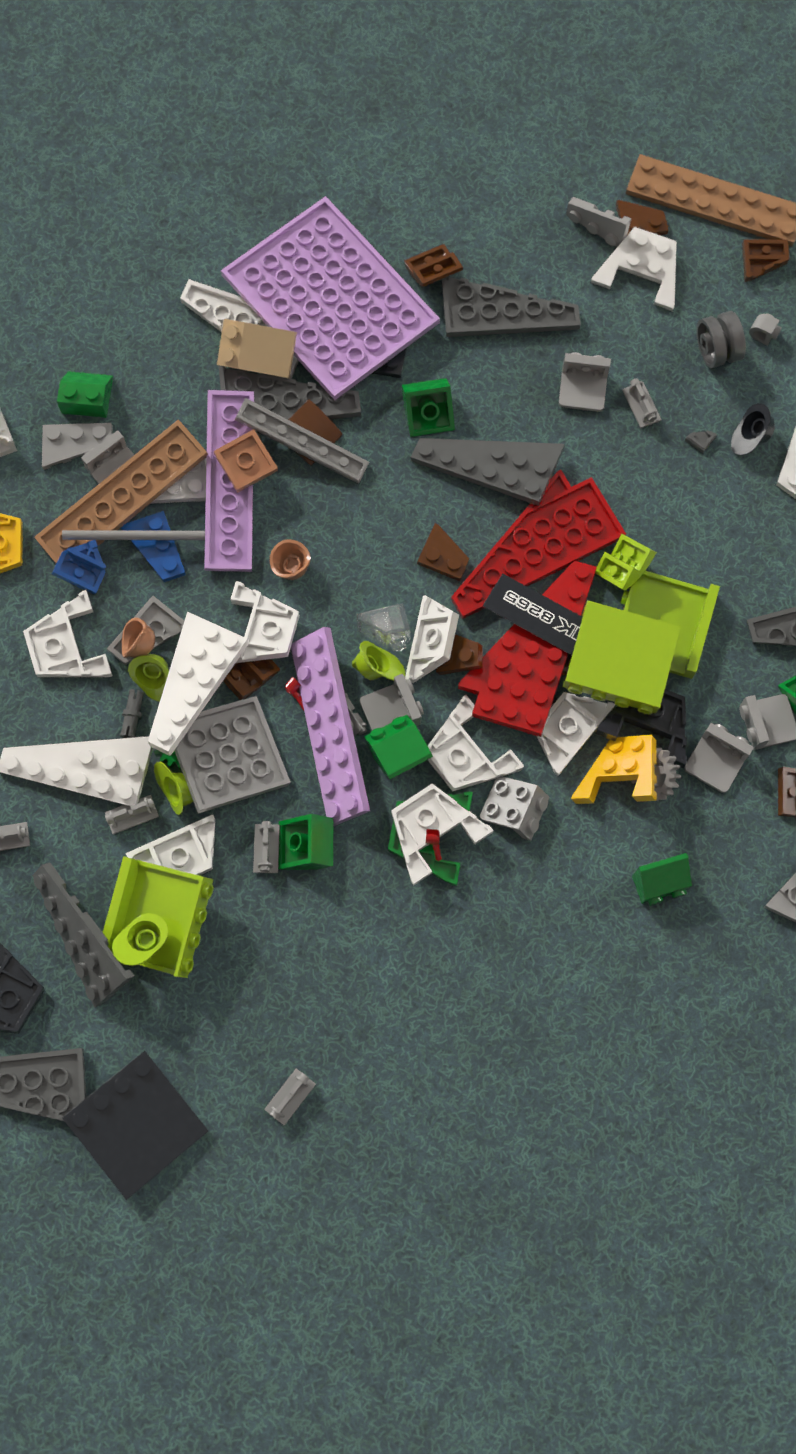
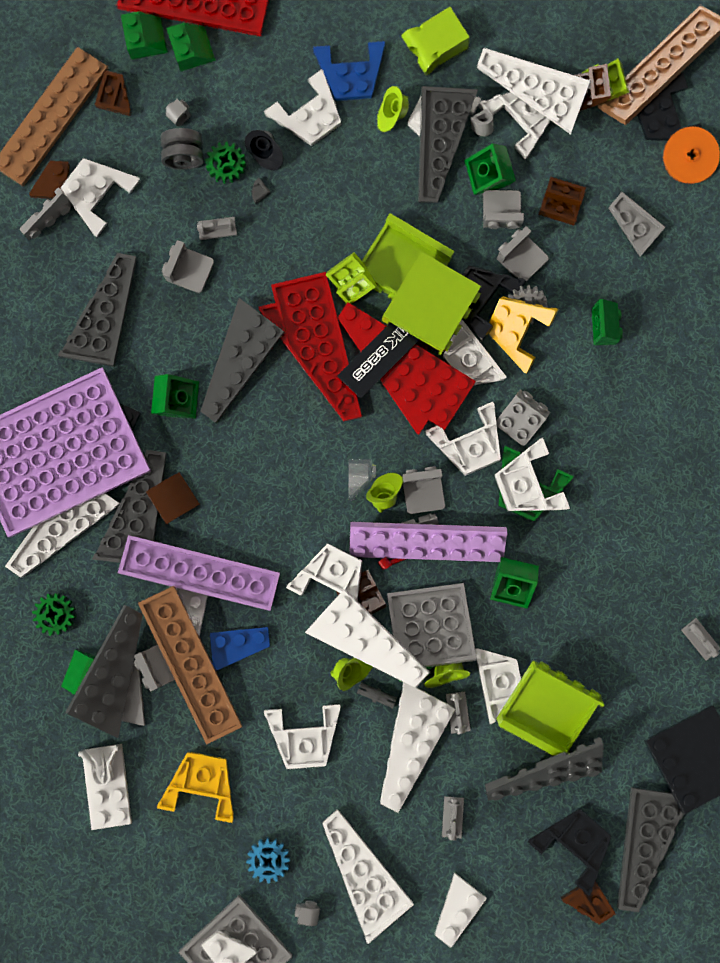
camera: 75 degrees left, 10 degrees up
(76, 409) = (105, 686): none -> dark grey wing
(81, 567) = (243, 710): blue slope -> none
(131, 535) = (228, 662): light grey piece -> none
(136, 345) = (51, 607): none -> green gear
(137, 638) = (321, 678): nougat helmet -> none
(140, 939) = (570, 726): lime piece -> none
(159, 618) = (310, 669): light grey wing -> none
(245, 460) = (189, 556): nougat plate -> none
(256, 348) = (88, 523): tan slope -> none
(266, 848) = (510, 613): light grey hinge -> none
(289, 559) = (281, 540): nougat helmet -> none
(301, 440) = (180, 506): light grey tile -> none
(398, 746) = (459, 492): green slope -> none
(431, 639) = (374, 443): white wing -> none
(432, 265) = (49, 360): reddish brown slope -> none
(432, 837) = (540, 484): red hand -> none
(443, 555) = (304, 418): reddish brown wing -> none
(464, 656) = (391, 428): reddish brown wing -> none
(712, 397) = (225, 154): none -> green gear

